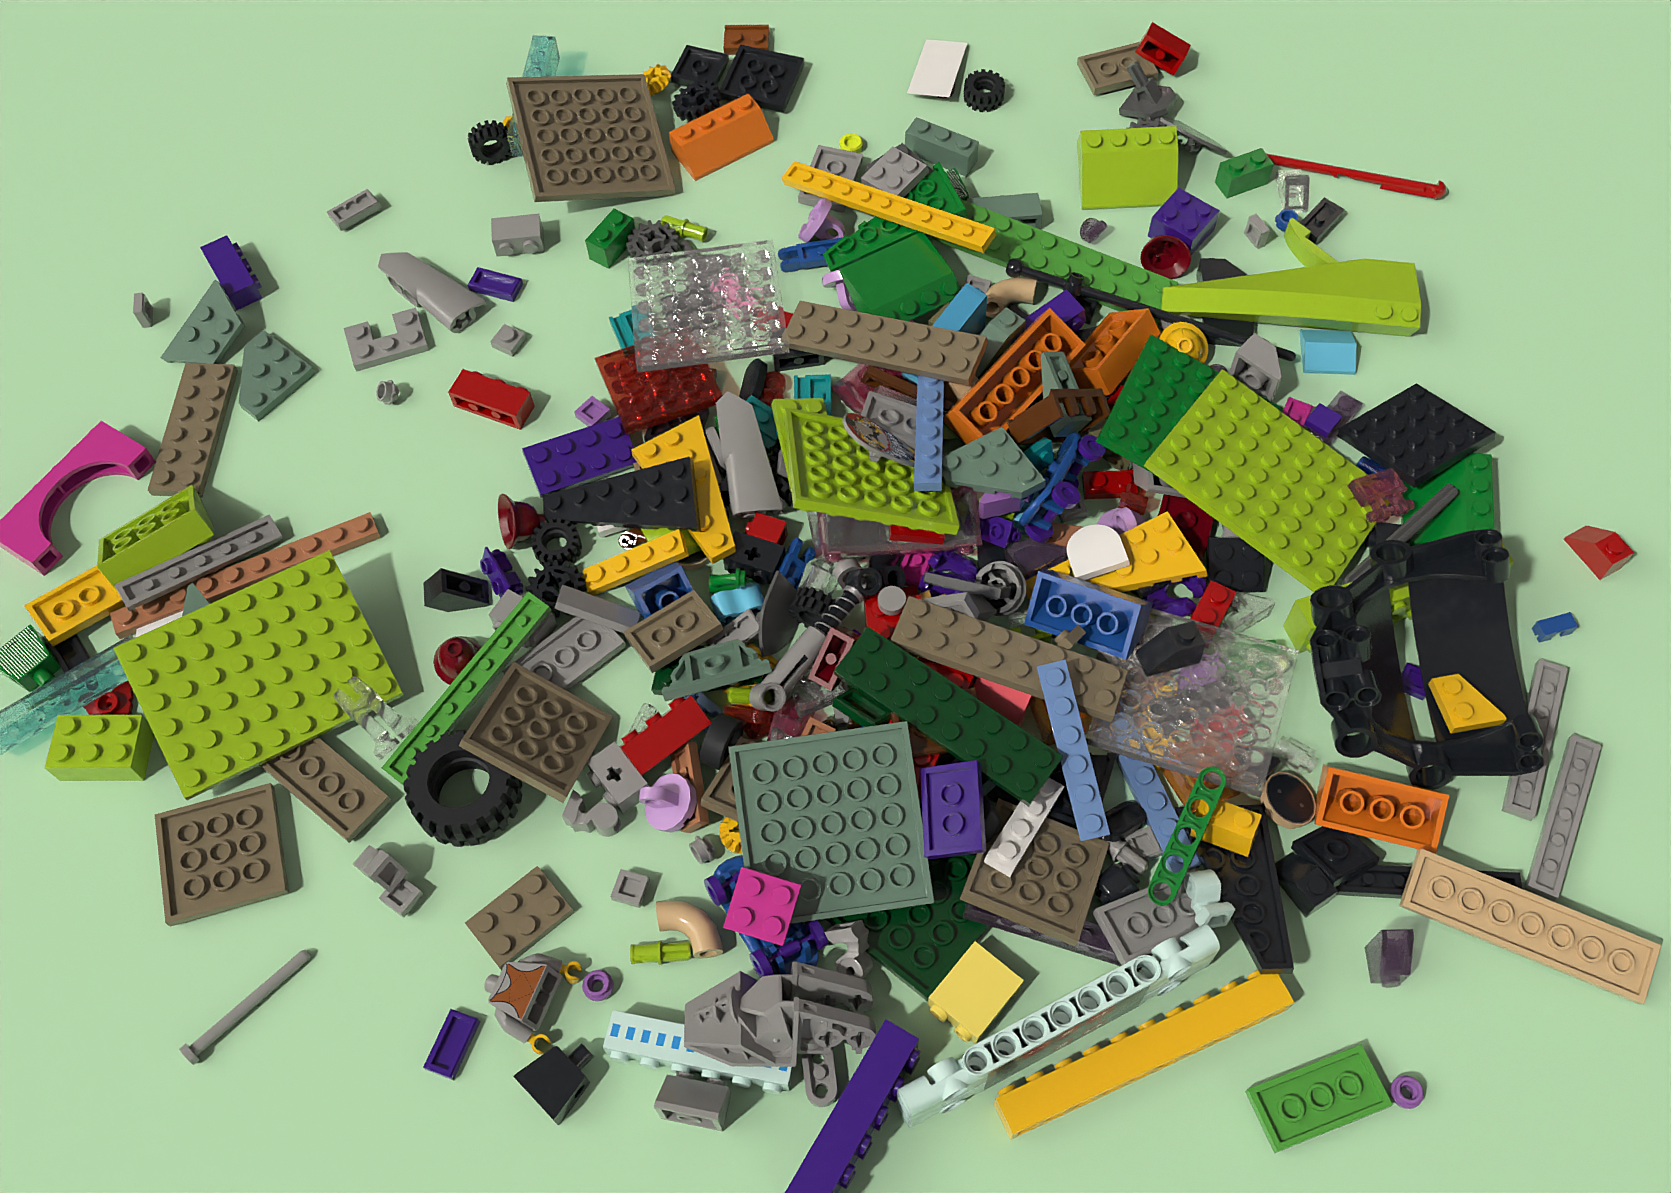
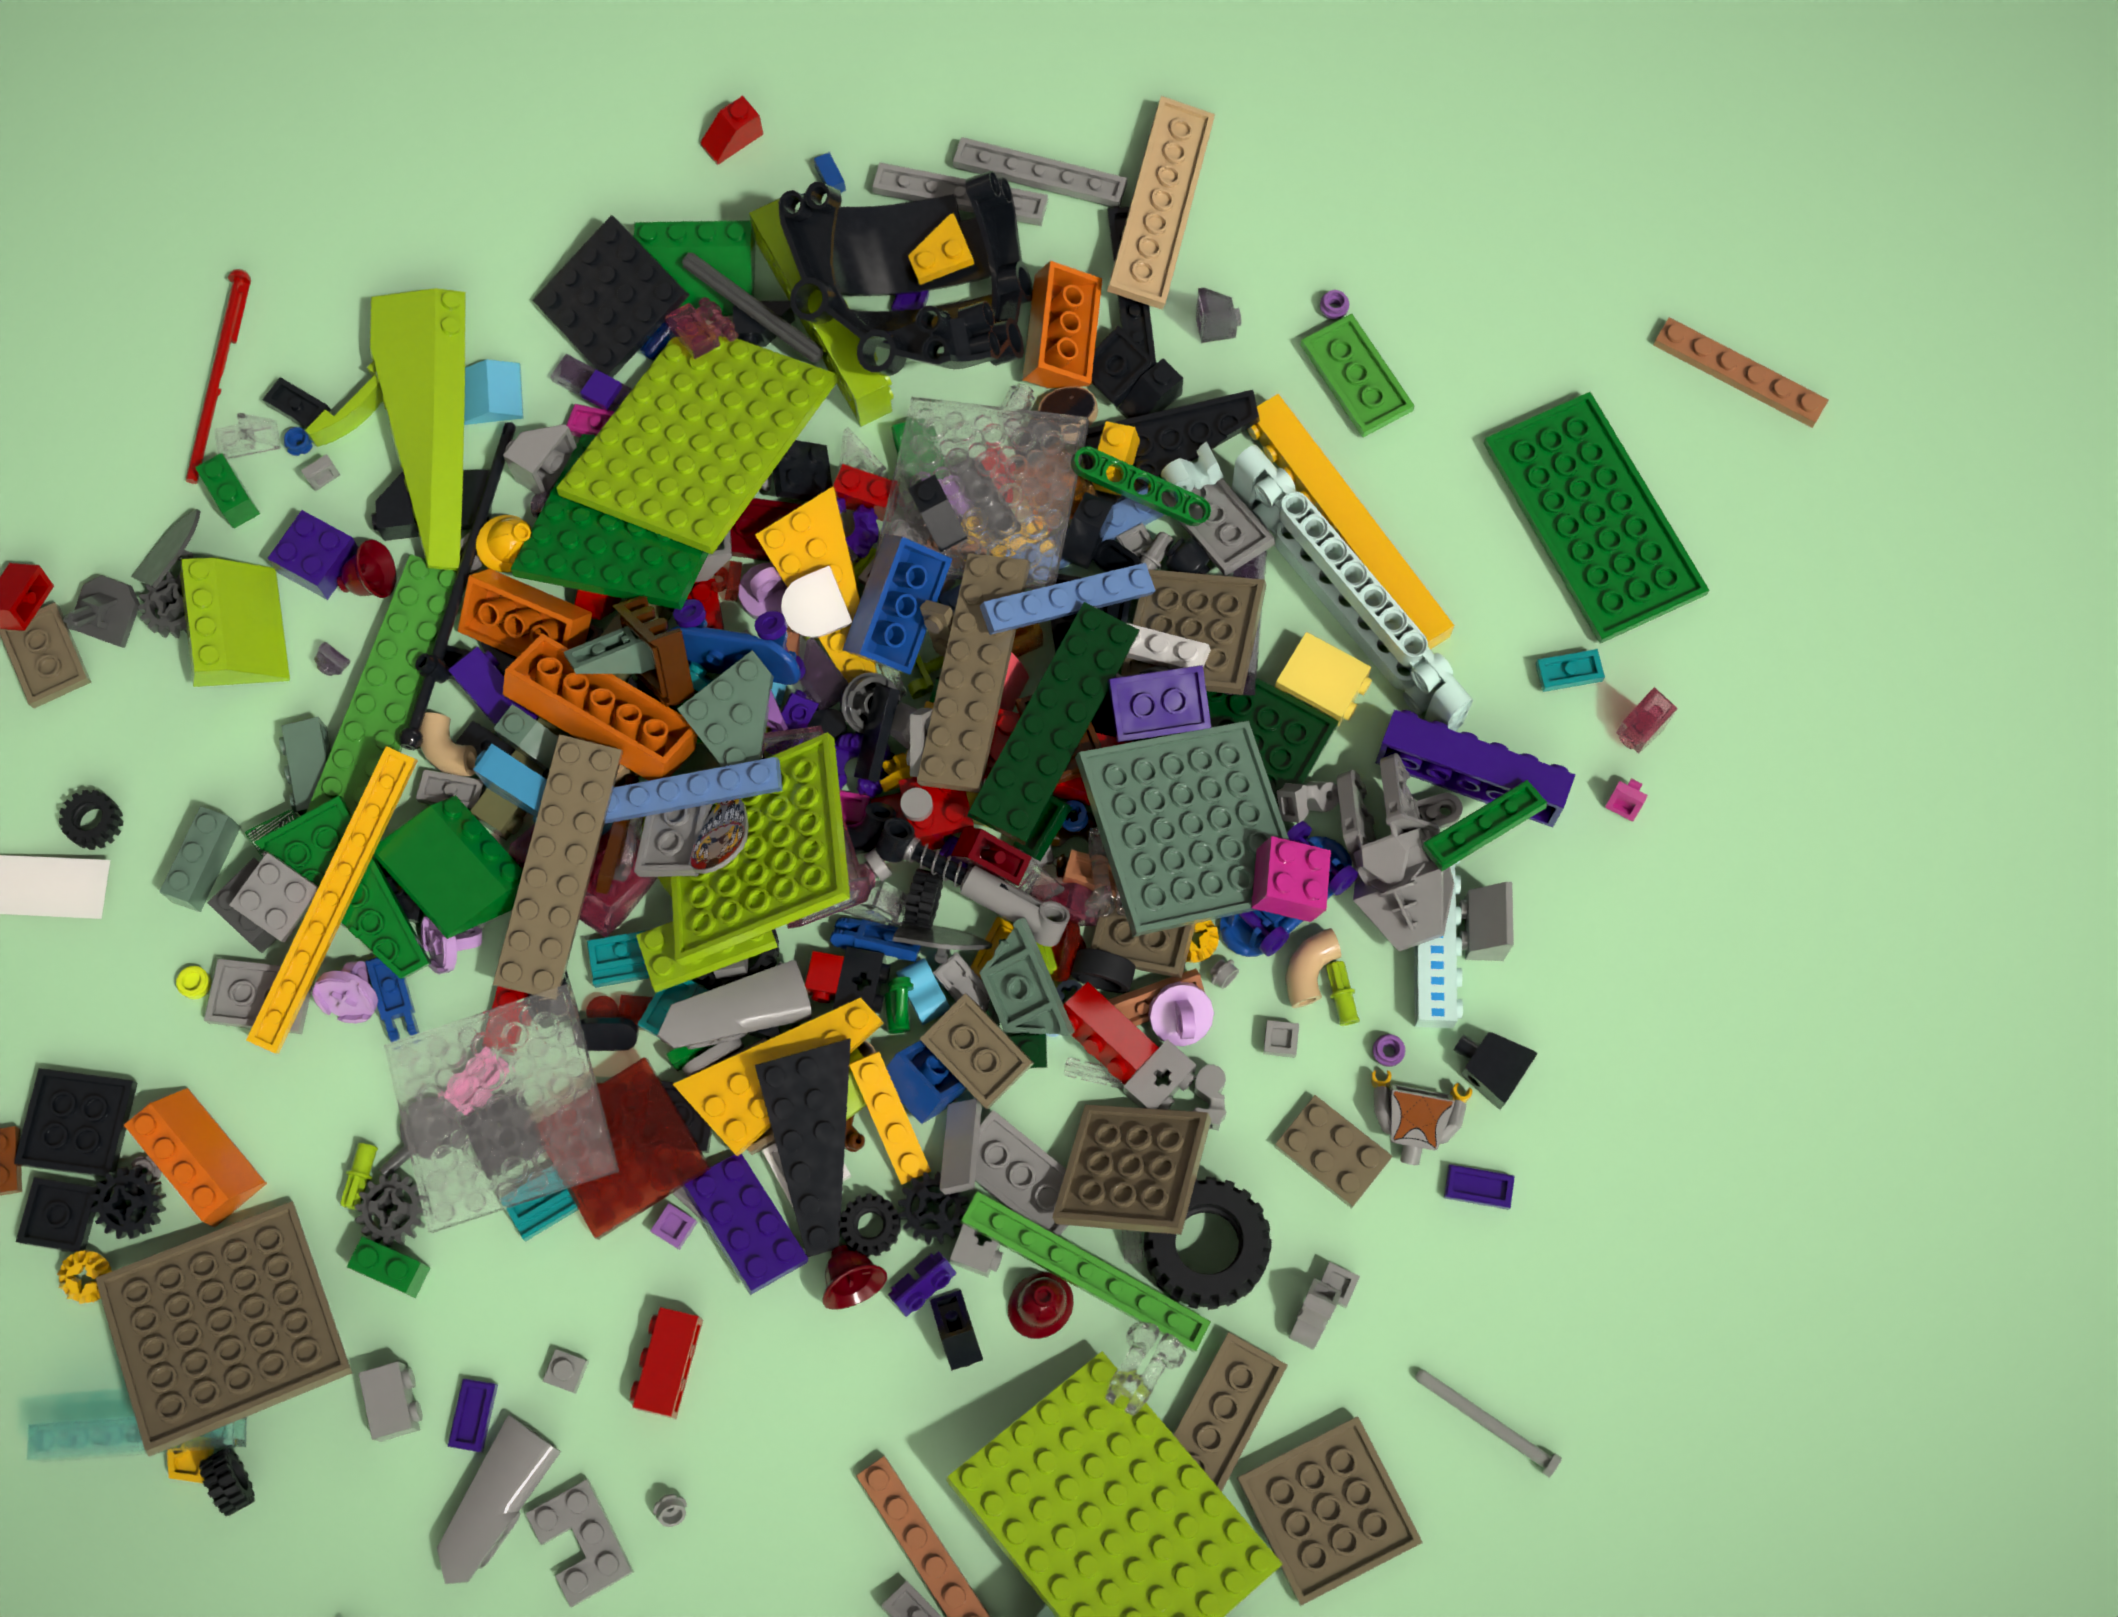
camera: 100 degrees left, 10 degrees up
(777, 1100) = (1484, 825): none -> green tile
(1152, 791) = (1087, 530): none -> black slope

